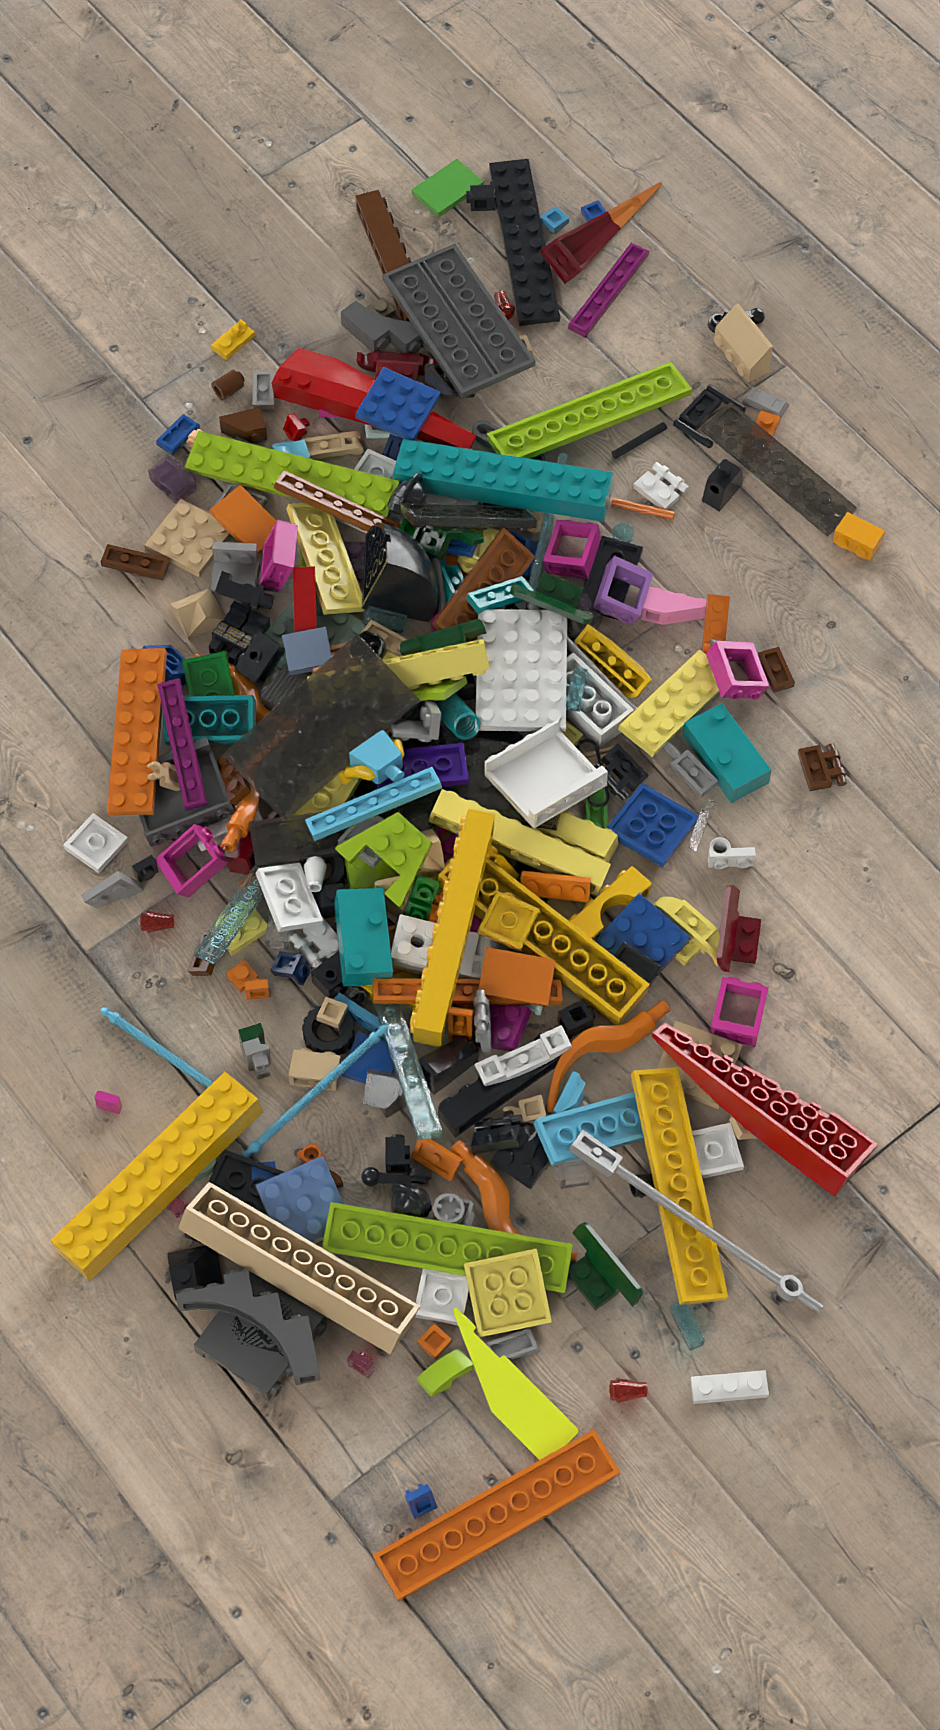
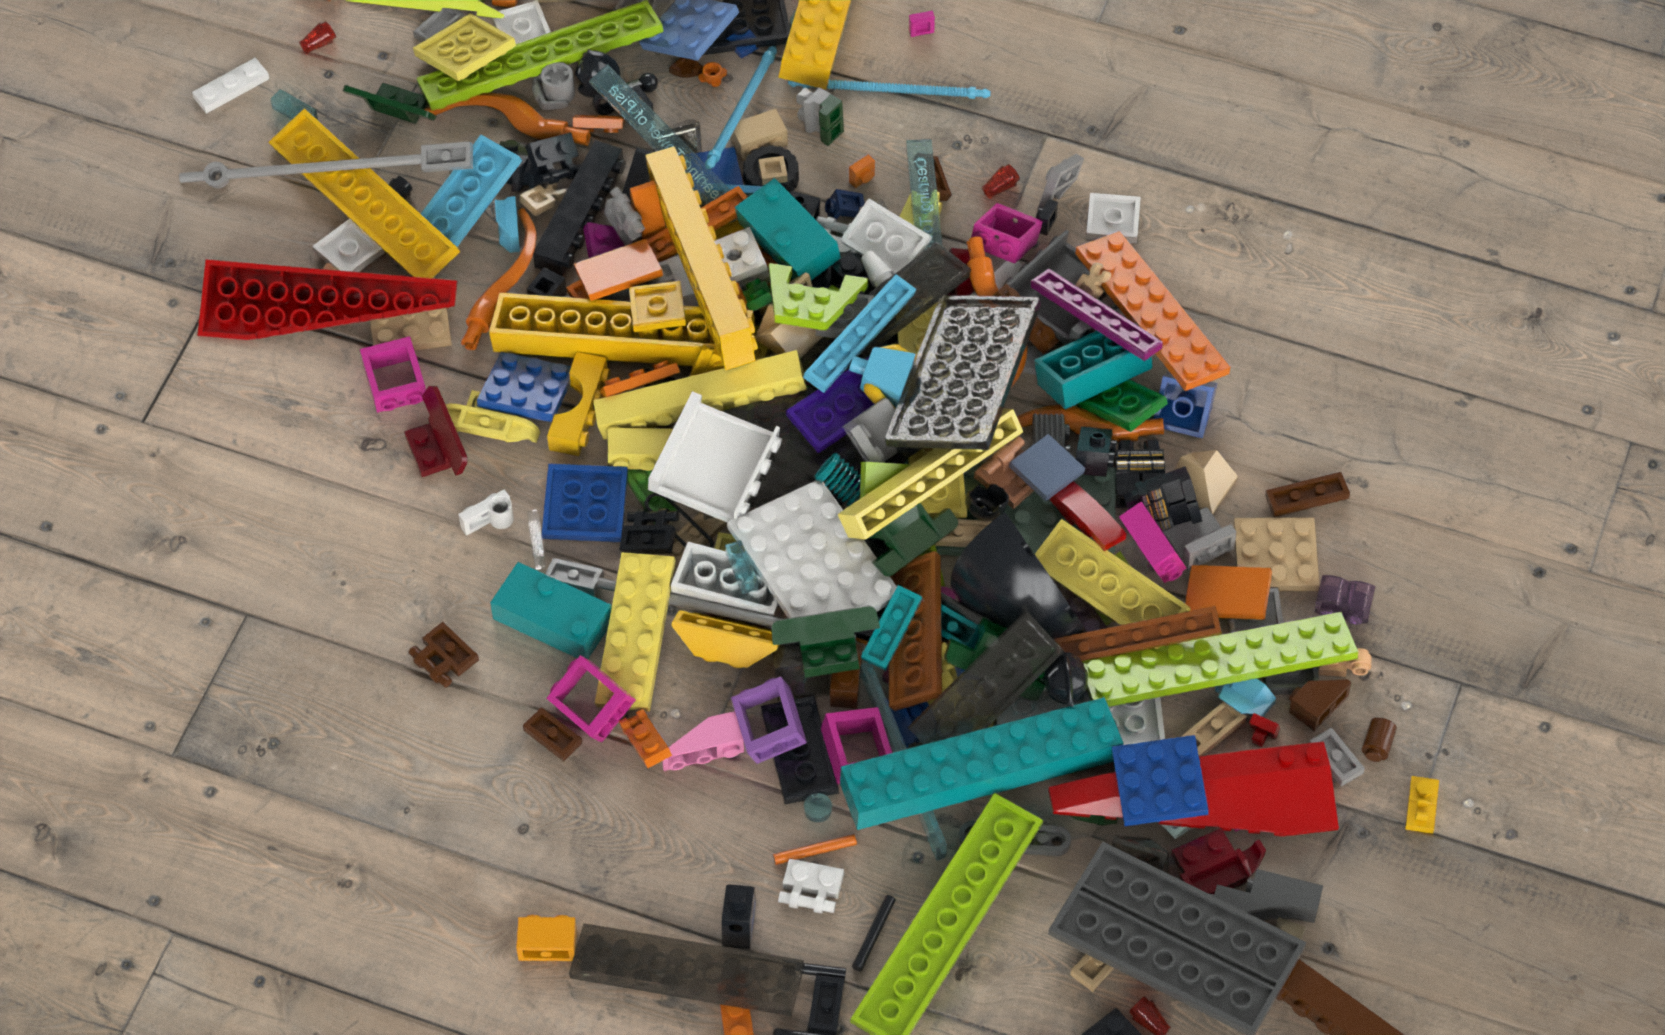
camera: 150 degrees right, 5 degrees down
(177, 434) = (1384, 655): blue plate -> none
(241, 973) = (886, 182): orange plate -> none
(525, 1058) = (571, 214): white slope -> none
(638, 962) = (516, 357): black tile -> none

